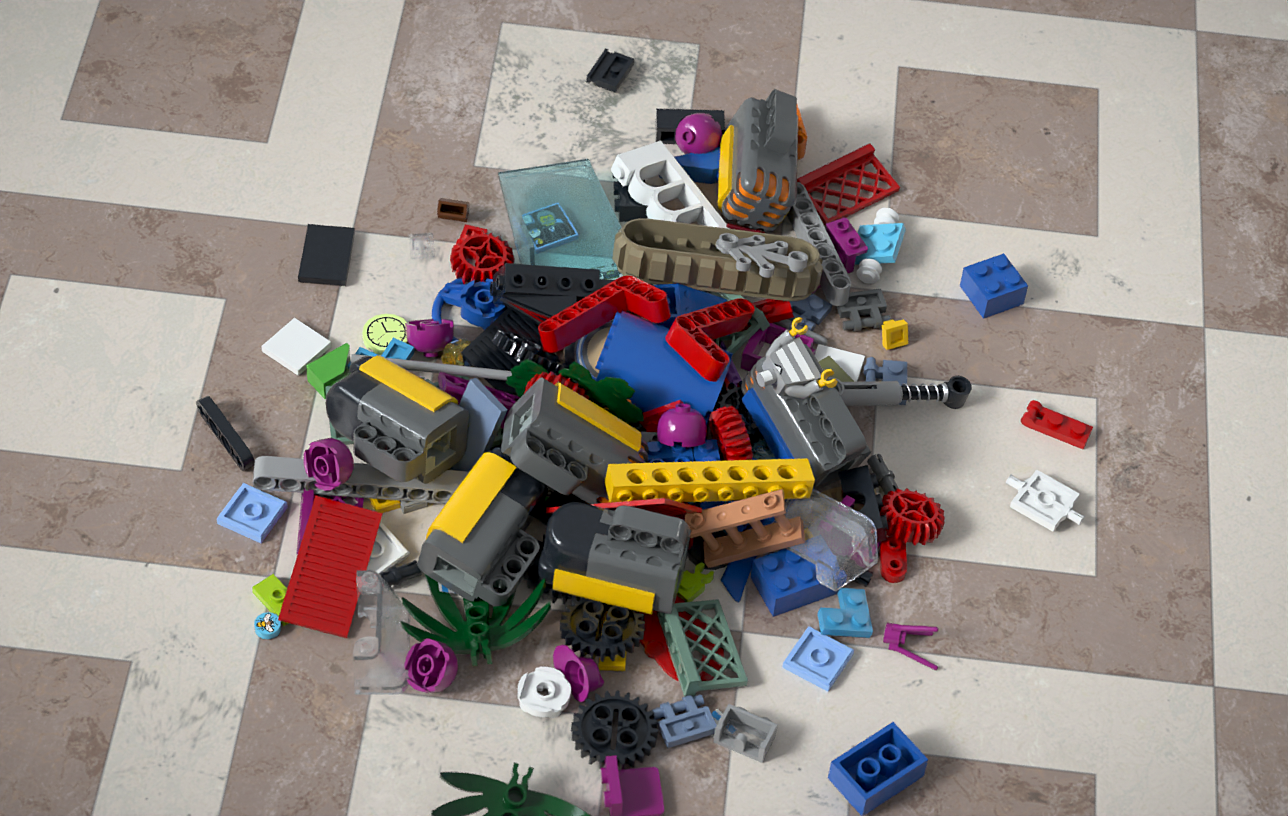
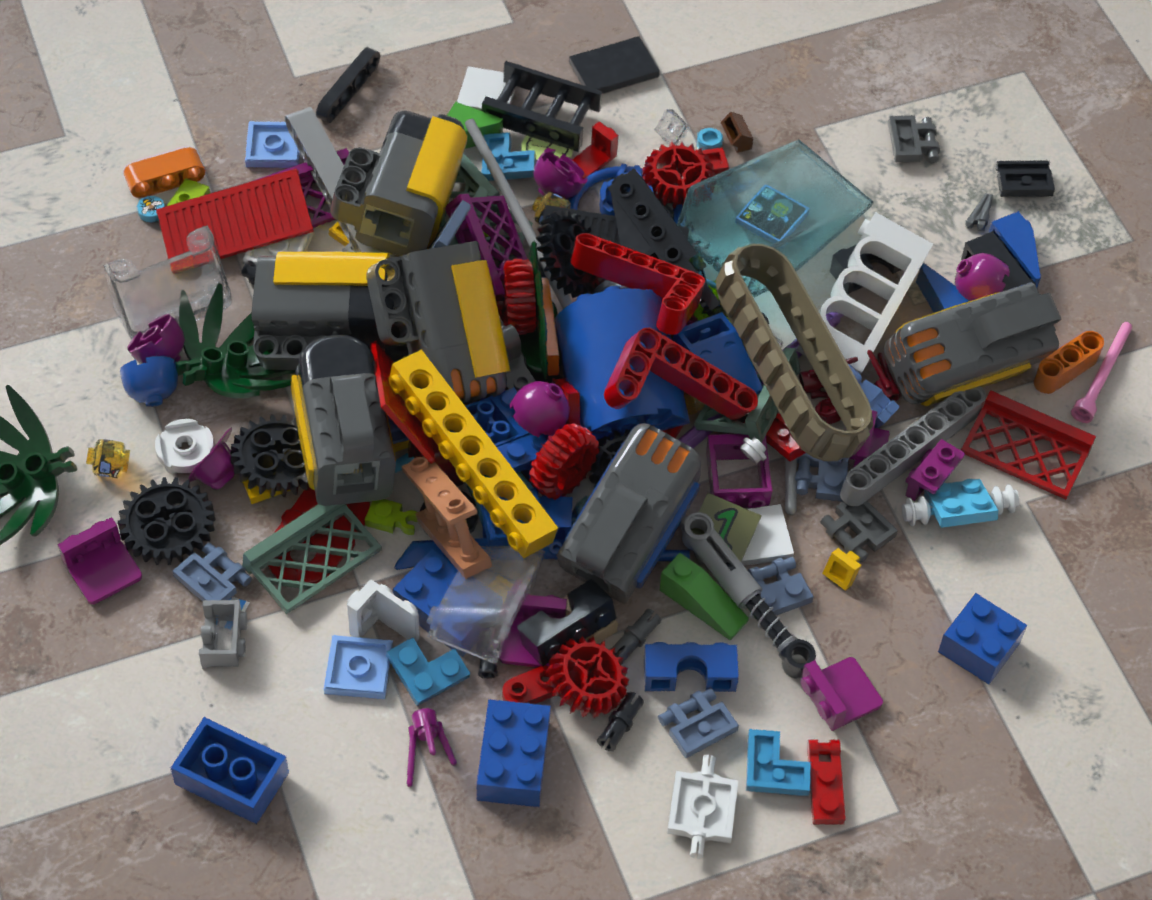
camera: 65 degrees right, 5 degrees up
(236, 599) = (163, 172): none -> orange beam
(328, 463) = (325, 154): magenta cylinder -> none
(361, 328) = (538, 125): none -> black fence
(414, 299) = (600, 152): none -> red bracket
(445, 231) = (709, 139): none -> medium azure tile
(469, 687) = (151, 380): none -> blue cylinder
(528, 747) = (108, 458): none -> clear yellow head
(529, 113) = (906, 142): none -> dark grey plate
(623, 111) = (980, 214): none -> dark grey piece
(671, 98) = (1019, 241): none -> blue slope
(759, 252) = (800, 341): light grey plant -> none
(775, 329) = (753, 450): none -> white plate
(790, 611) = (379, 603): none -> white bracket
(791, 368) = (643, 449): light grey torso -> none
(833, 140) = (1085, 408): none -> bright pink piece
(880, 421) = (702, 596): none -> bright green slope
(937, 441) = (714, 662): none -> blue arch
(949, 589) = (513, 753): none -> blue brick
(954, 519) = (620, 721): none -> black pin
(983, 473) = (701, 730): none -> sand blue plate
(994, 383) = (840, 692): none -> magenta bracket
(1034, 452) = (768, 773): none -> dark azure plate

